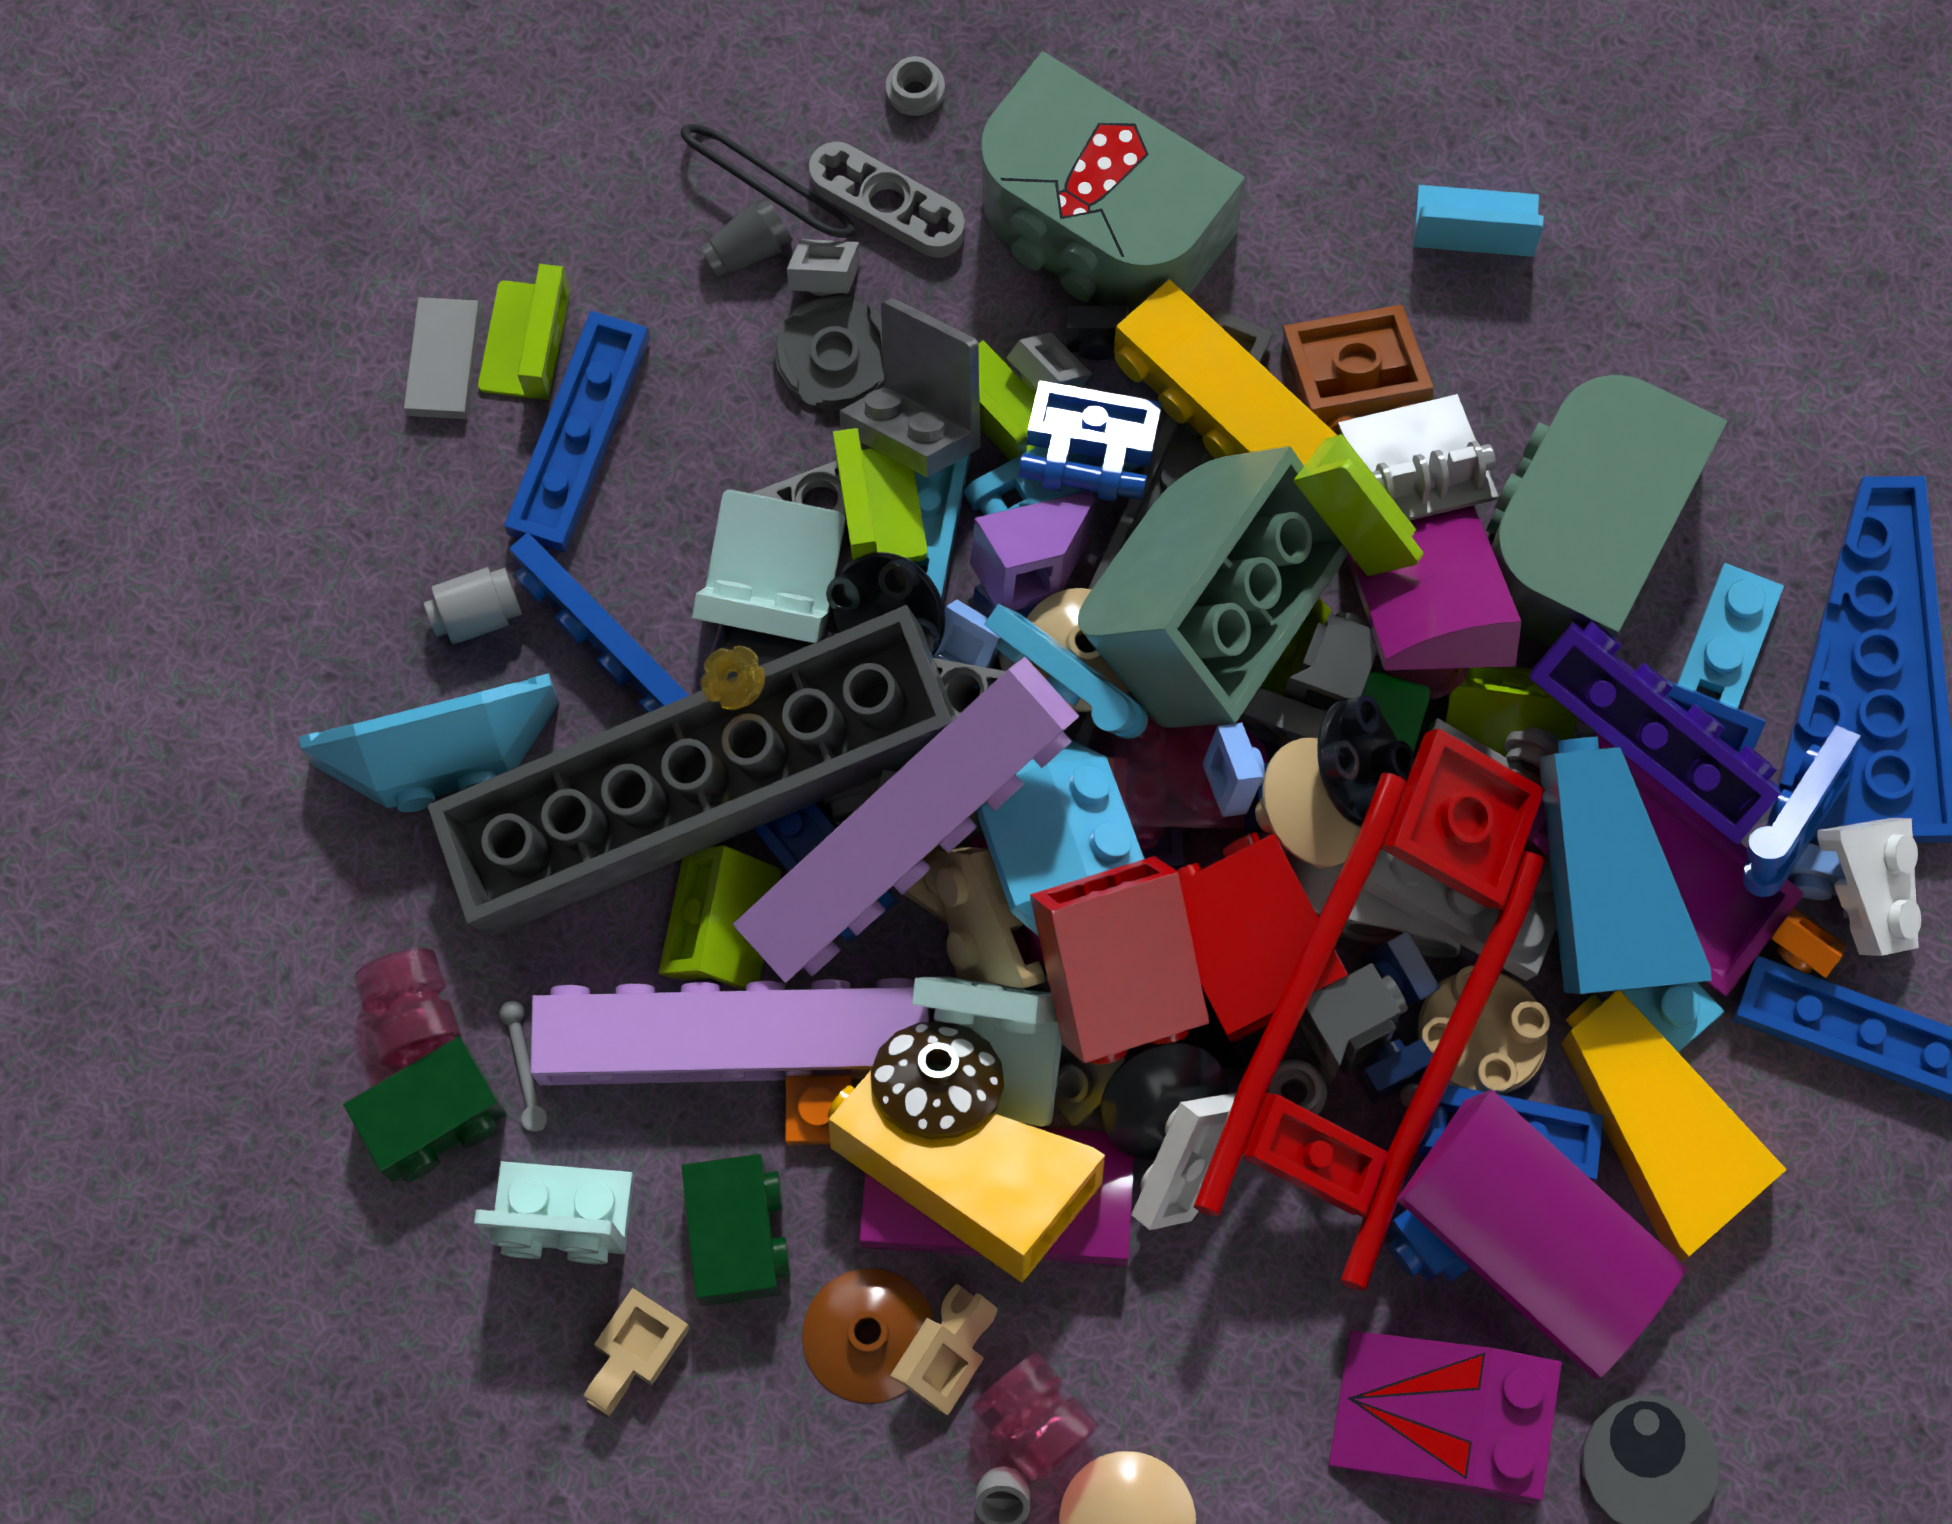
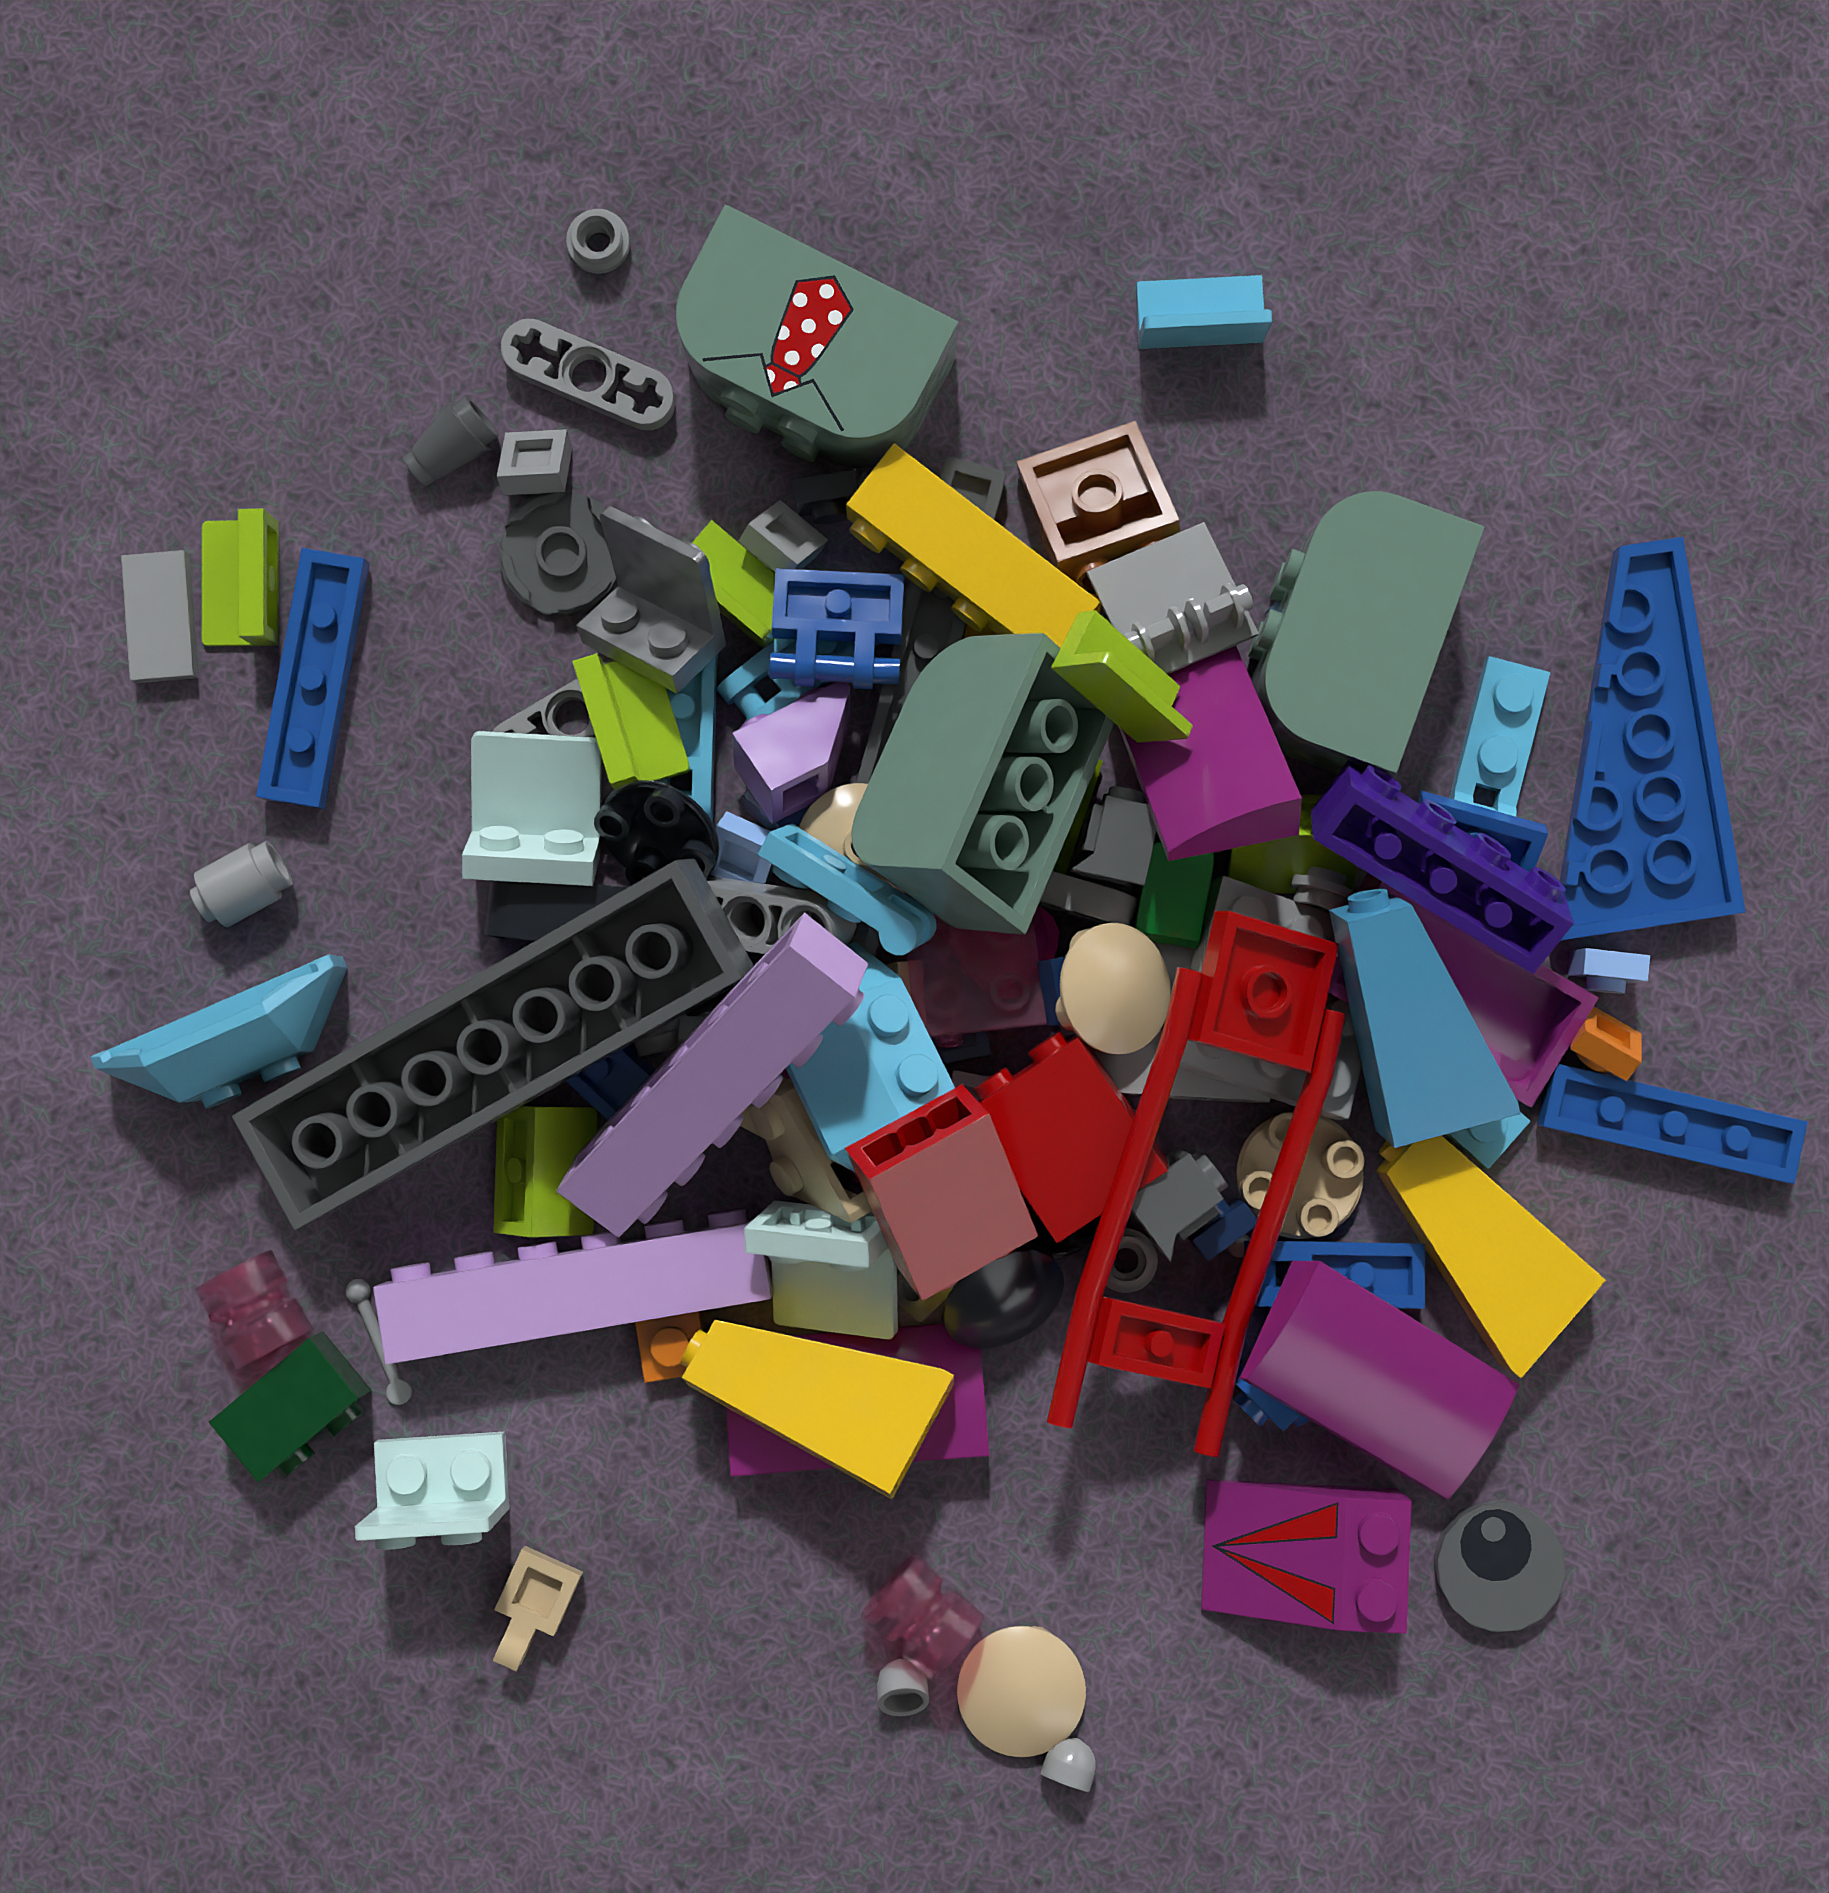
camera: 10 degrees left, 15 degrees up
(585, 619) = (356, 884): blue plate -> none
(733, 1229) = (609, 1479): dark green brick -> none
(746, 687) = (529, 956): clear yellow plate -> none
(761, 188) = (454, 385): black piece -> none
(829, 1328) = (762, 1519): dark orange dish -> none
(932, 1101) = (788, 1350): dark brown dish -> none
(941, 1355) = (829, 1568): tan plate -> none
(1182, 1162) = (1033, 1354): white wing -> none
(1233, 769) = (1029, 975): light blue plate -> none
(1354, 752) = (1150, 940): black dish -> none
(1405, 965) = (1213, 1132): dark blue plate -> none
(1798, 815) = (1609, 878): plate -> none
(1878, 884) = (1671, 978): white wing -> none

